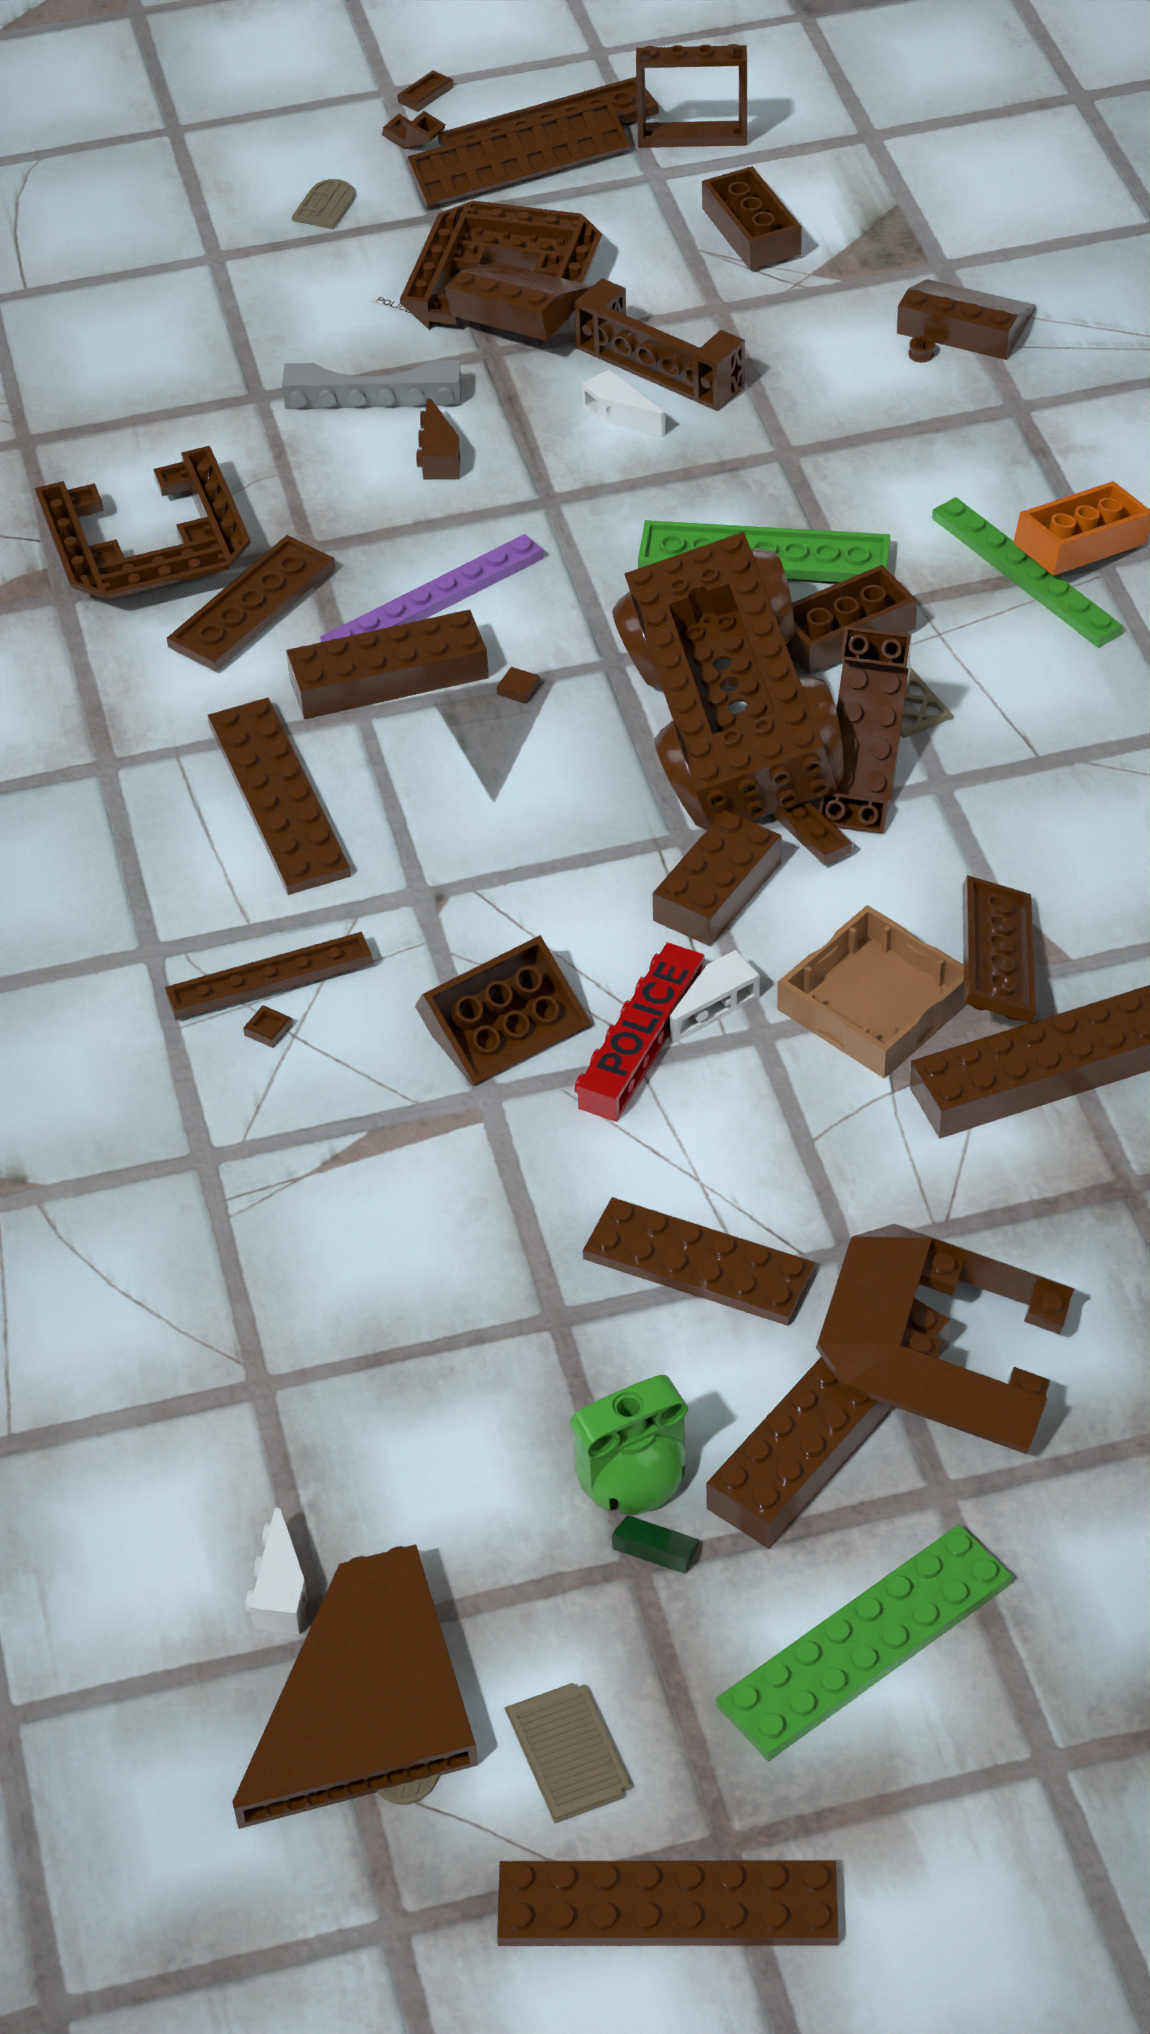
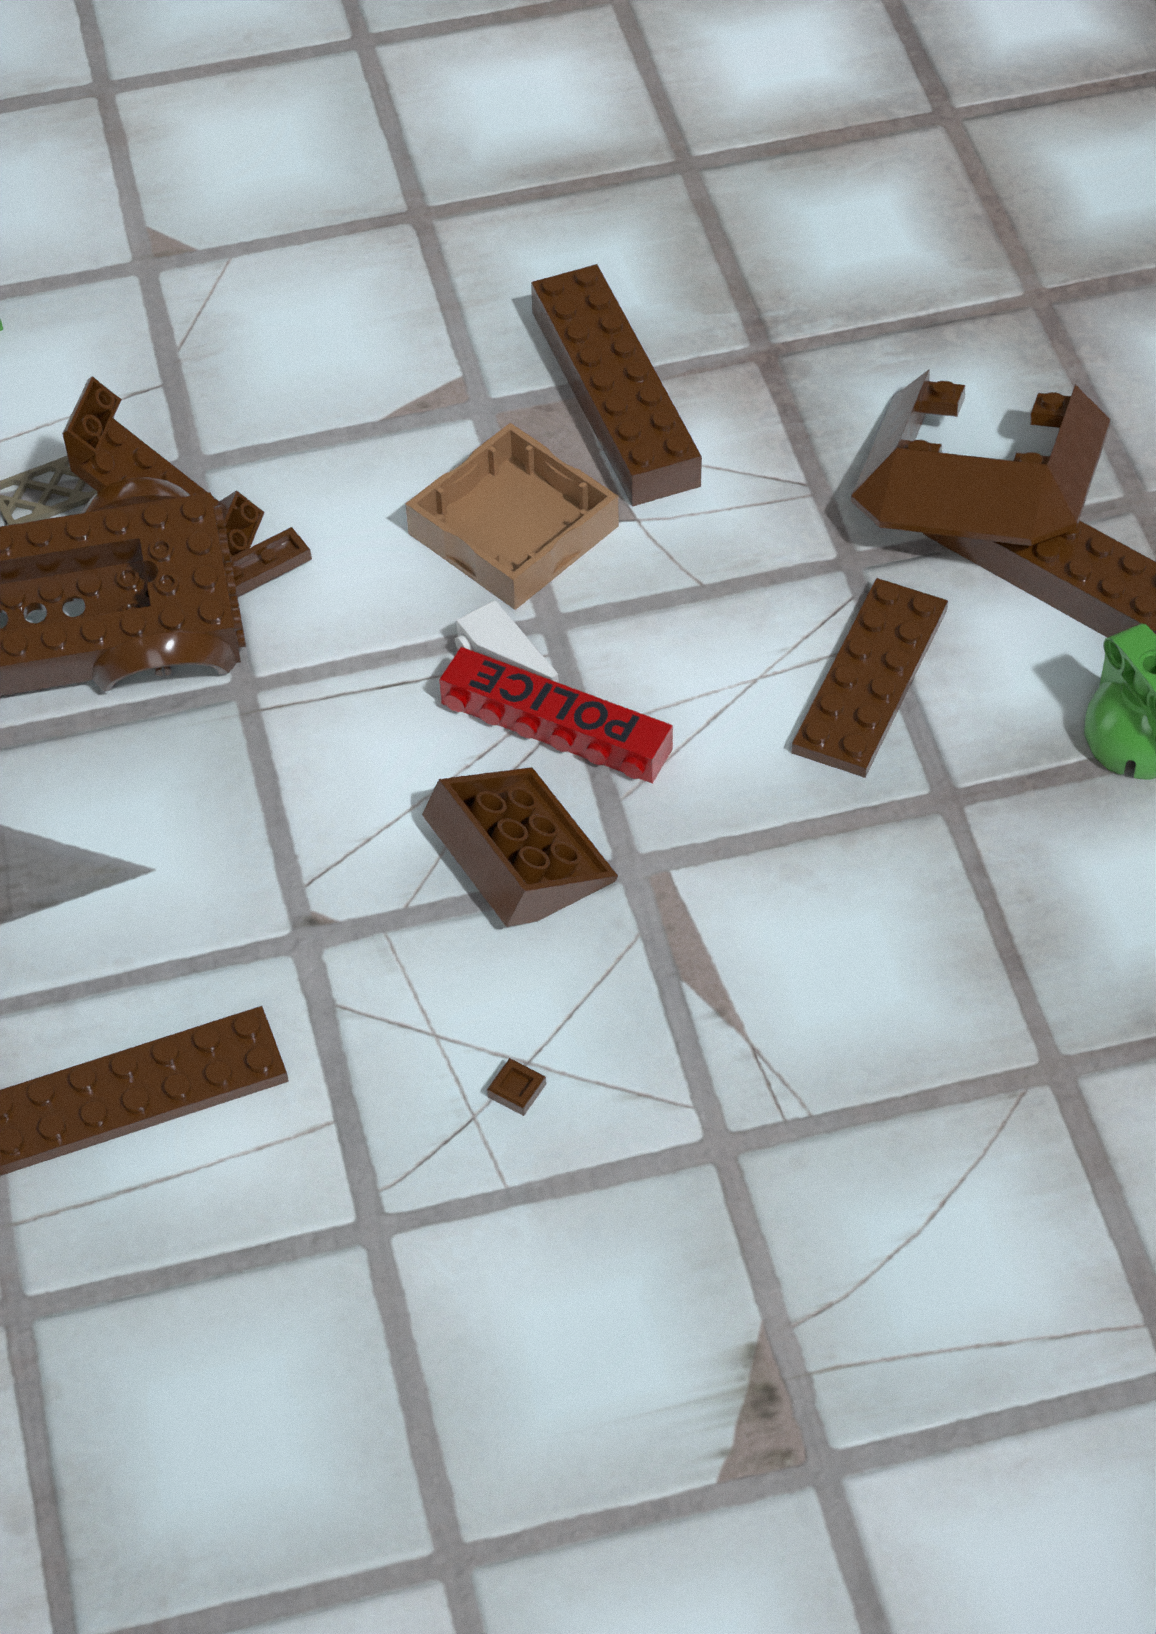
camera: 90 degrees left, 5 degrees up
(268, 975) = (440, 1087): reddish brown plate -> none
(717, 878) = (330, 643): reddish brown brick -> none
(998, 949) = (478, 404): reddish brown plate -> none

